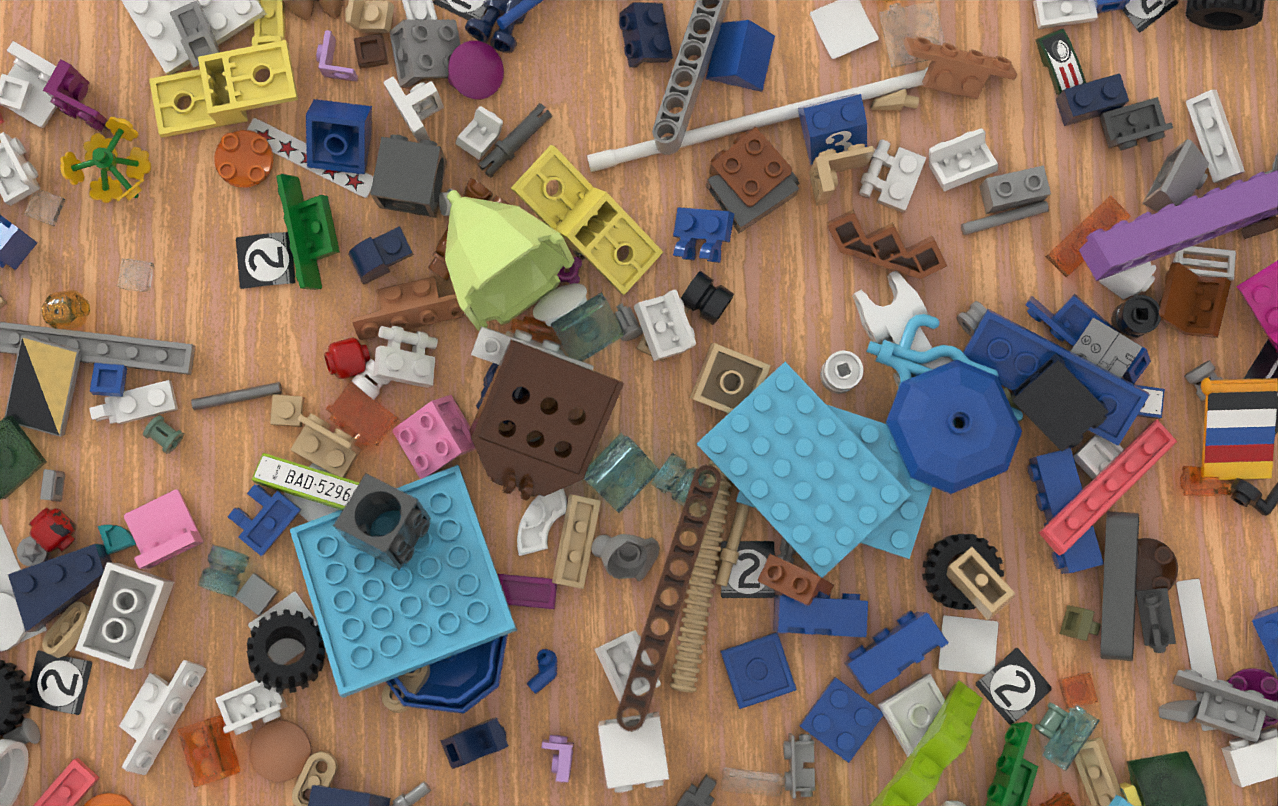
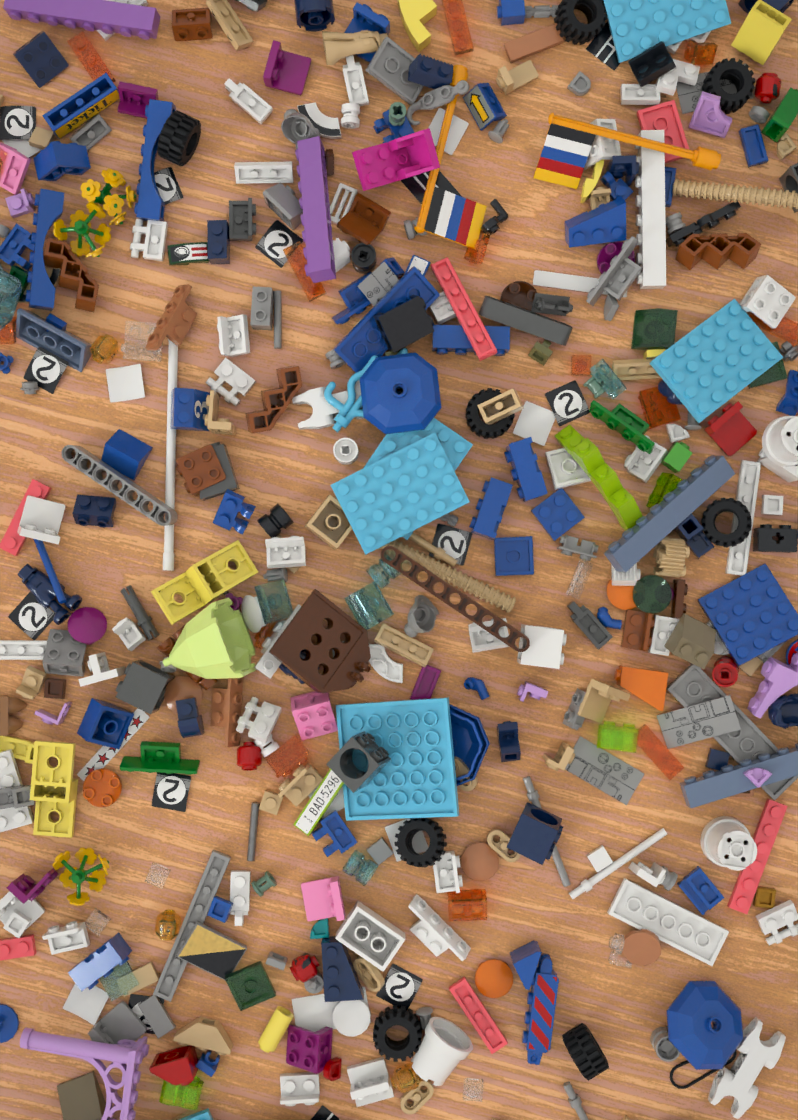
camera: 70 degrees left, 5 degrees up
(420, 231) = (182, 688): none -> nougat dish
(793, 580) = (466, 520): dark orange bracket -> none
(895, 101) = (183, 365): tan bar -> none
(1120, 181) = (275, 240): none -> sticker

